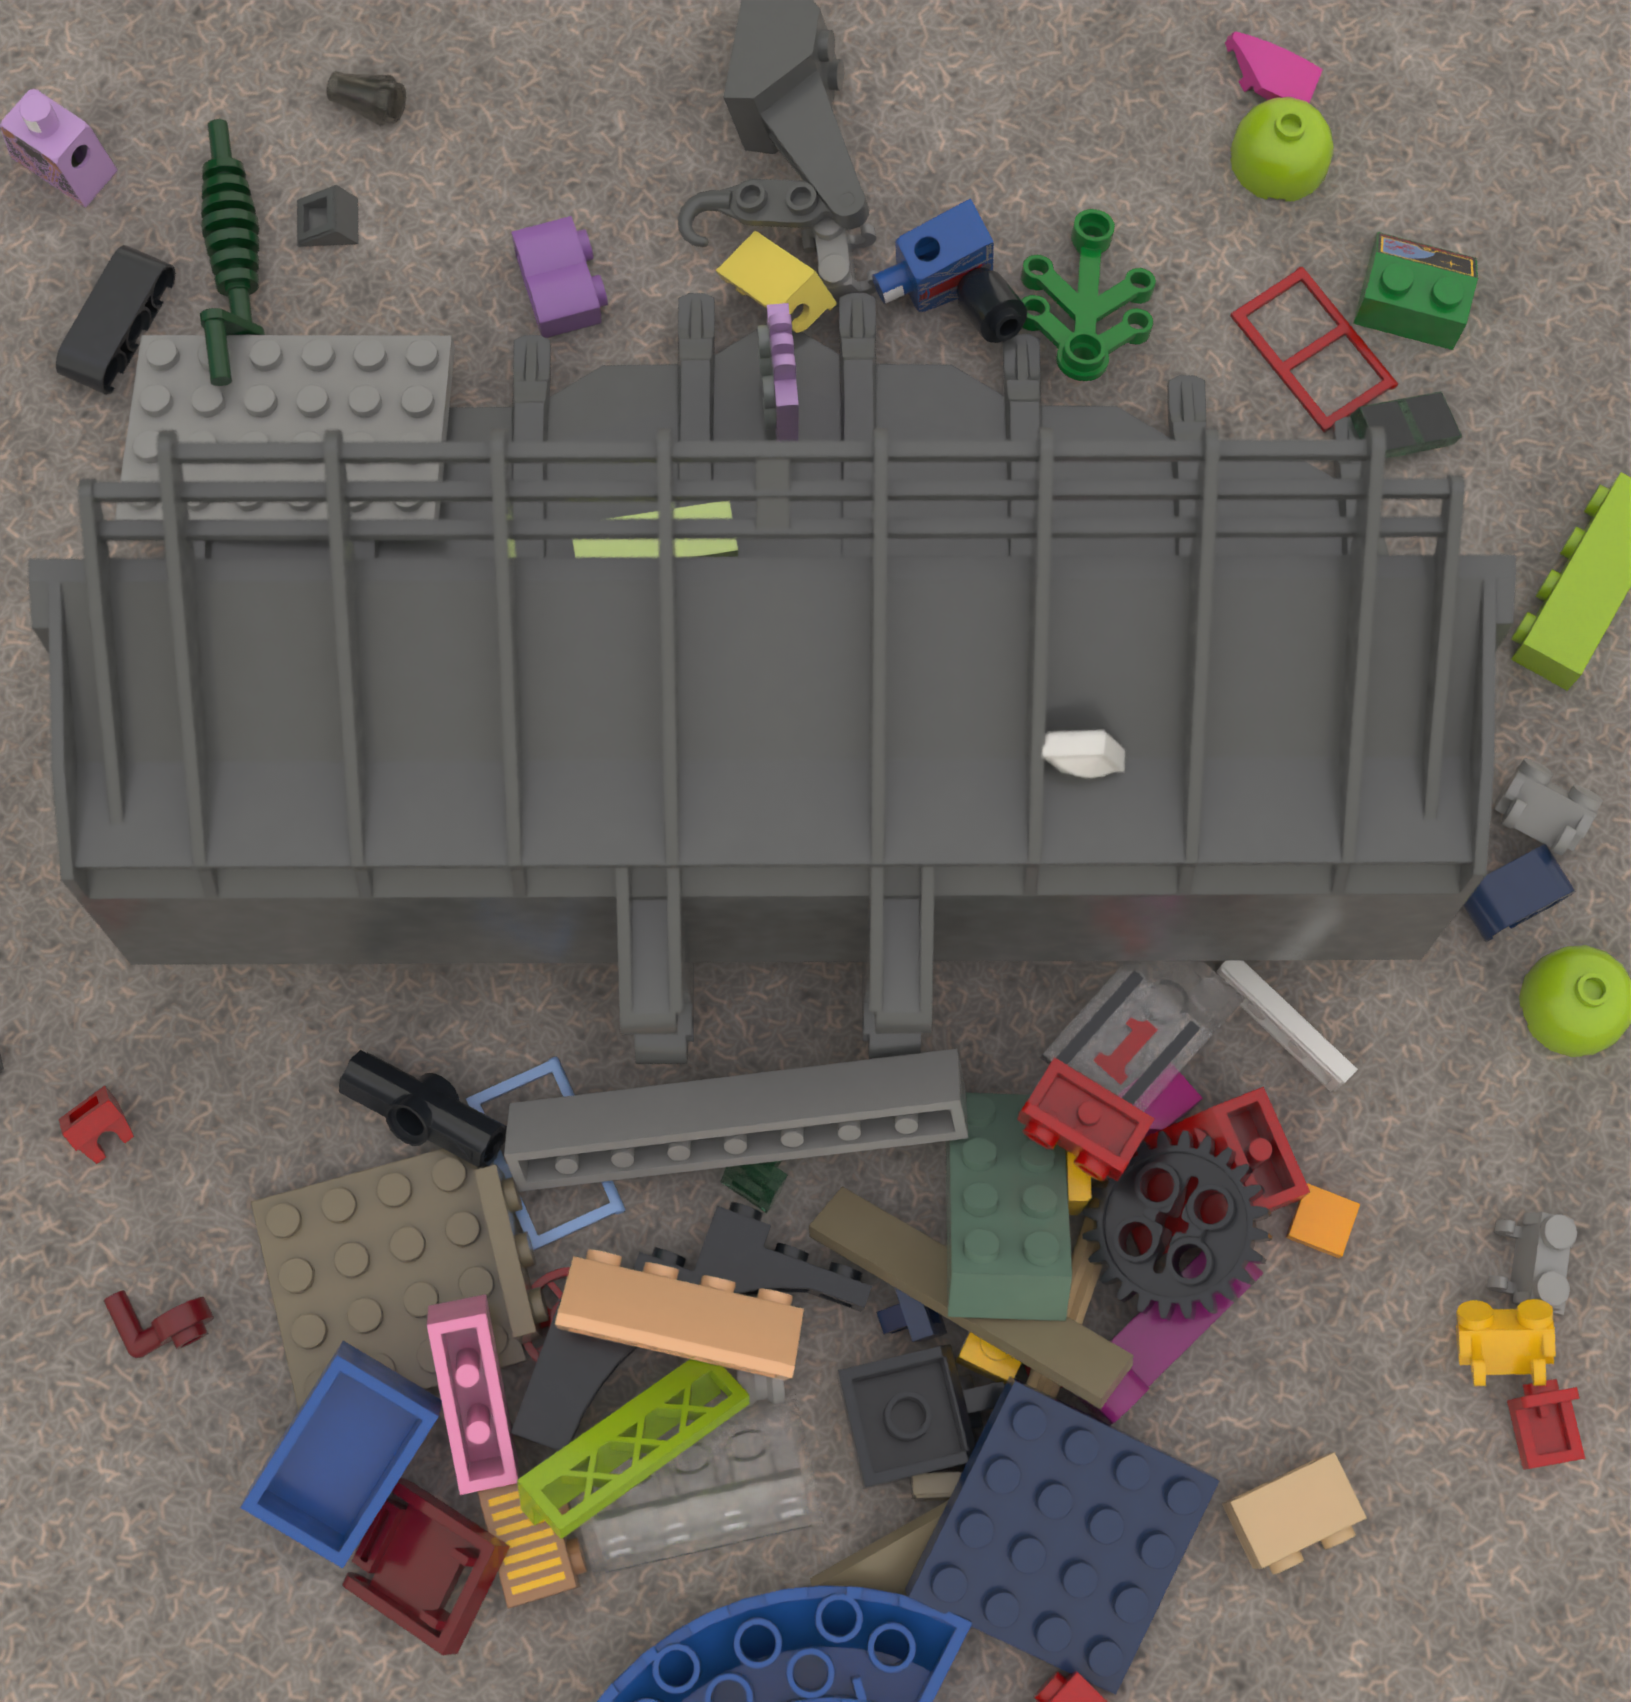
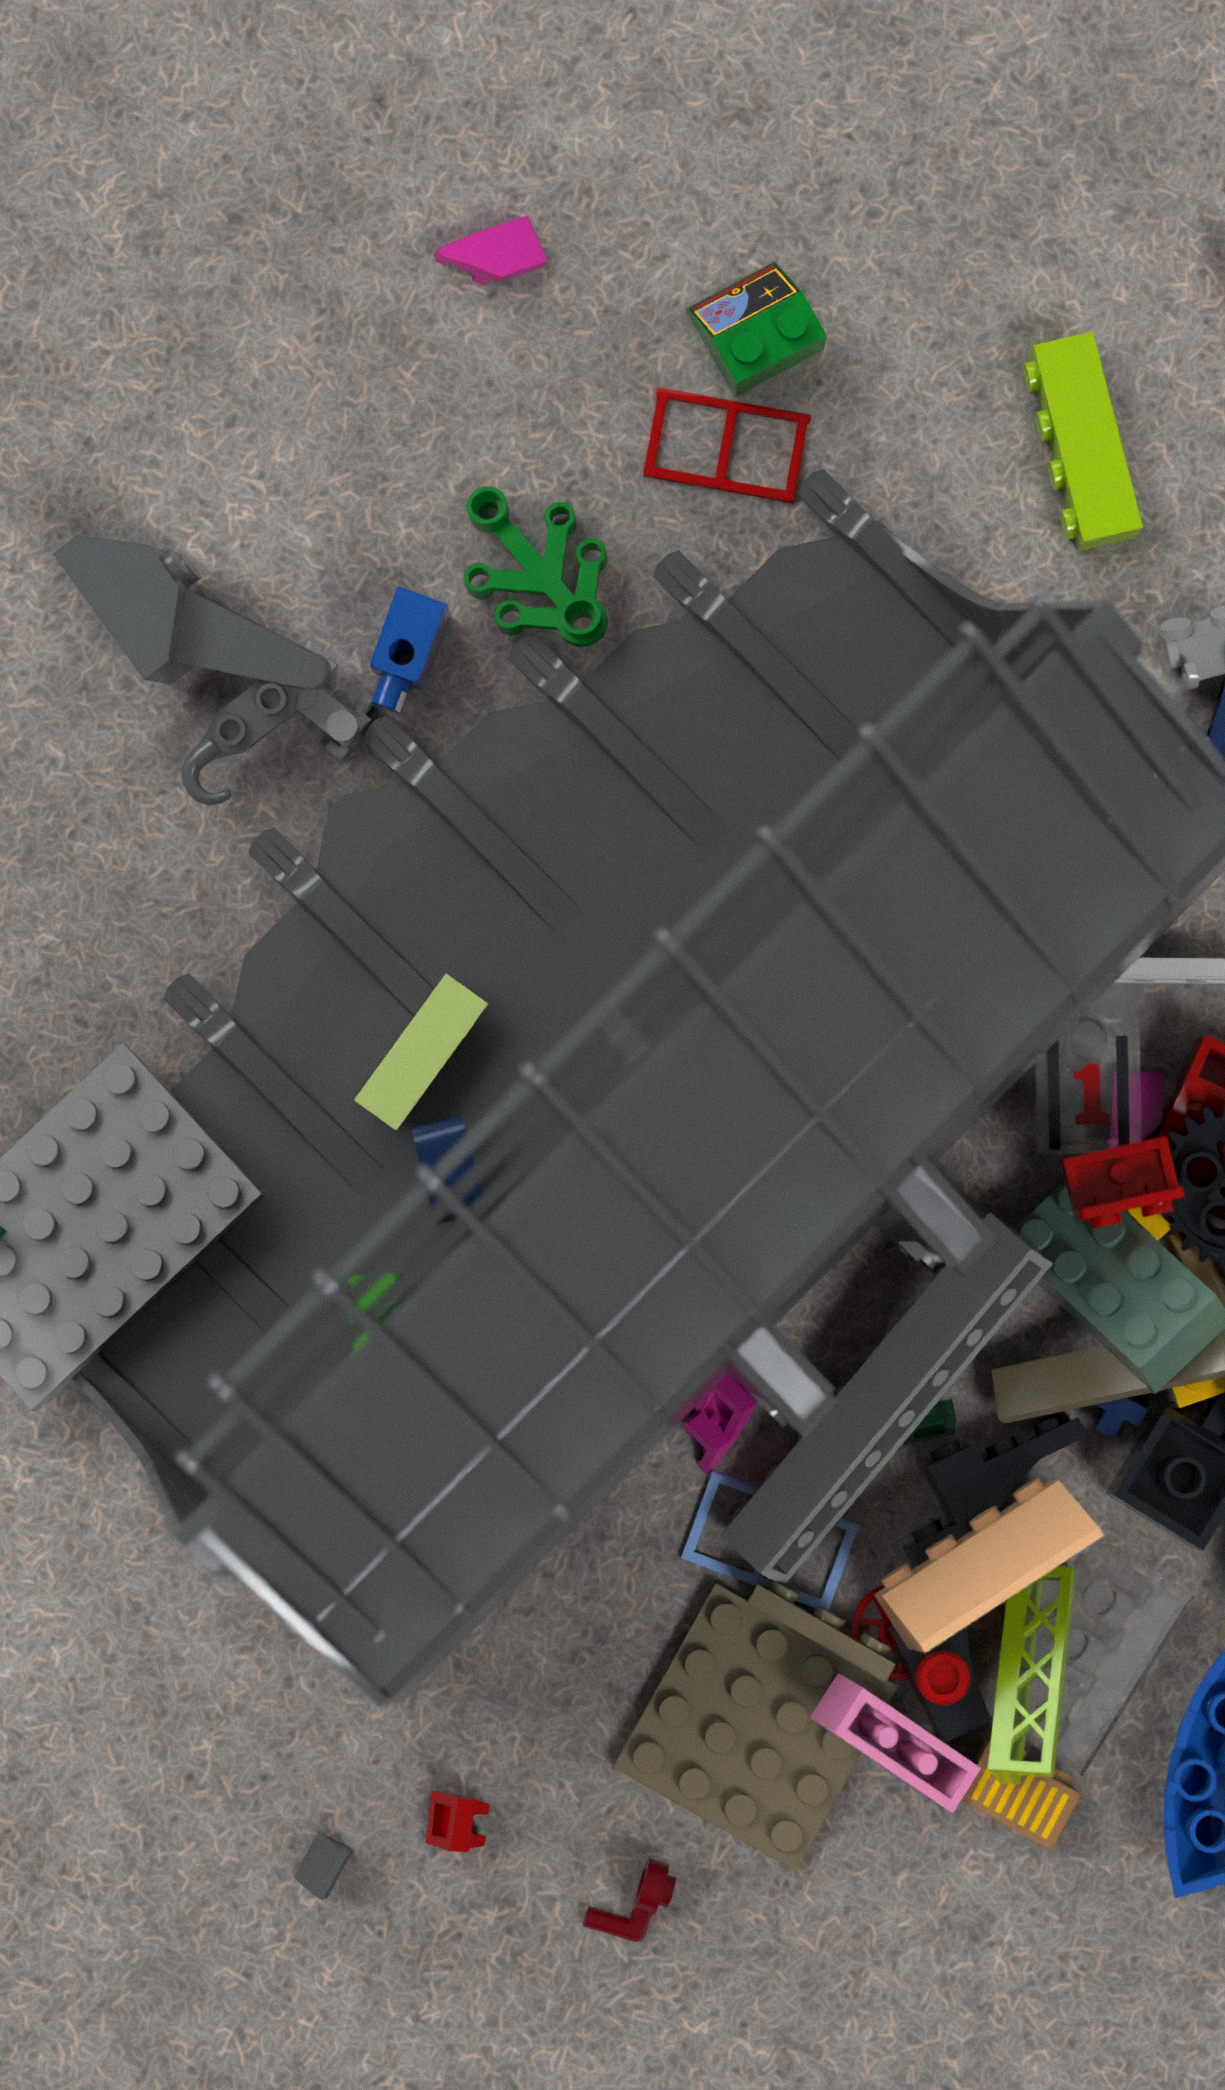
camera: 50 degrees left, 10 degrees up
(342, 1454) = (851, 1863): blue piece -> none
(417, 1563) = (964, 1880): dark red container -> none
(422, 1109) = (665, 1595): black piece -> none
(557, 276) = (142, 918): medium lavender brick -> none
(559, 1377) = (942, 1677): none -> red tile
(590, 1021) = (719, 1420): none -> dark pink slope
(776, 277) = (308, 776): light yellow hinge -> none
(778, 373) = (381, 839): lavender piece -> none
(991, 305) = (479, 643): black brick -> none
(1084, 753) = (952, 991): white tile -> none
(1282, 149) = (559, 310): lime cylinder -> none
(1410, 423) = (849, 448): black tile -> none

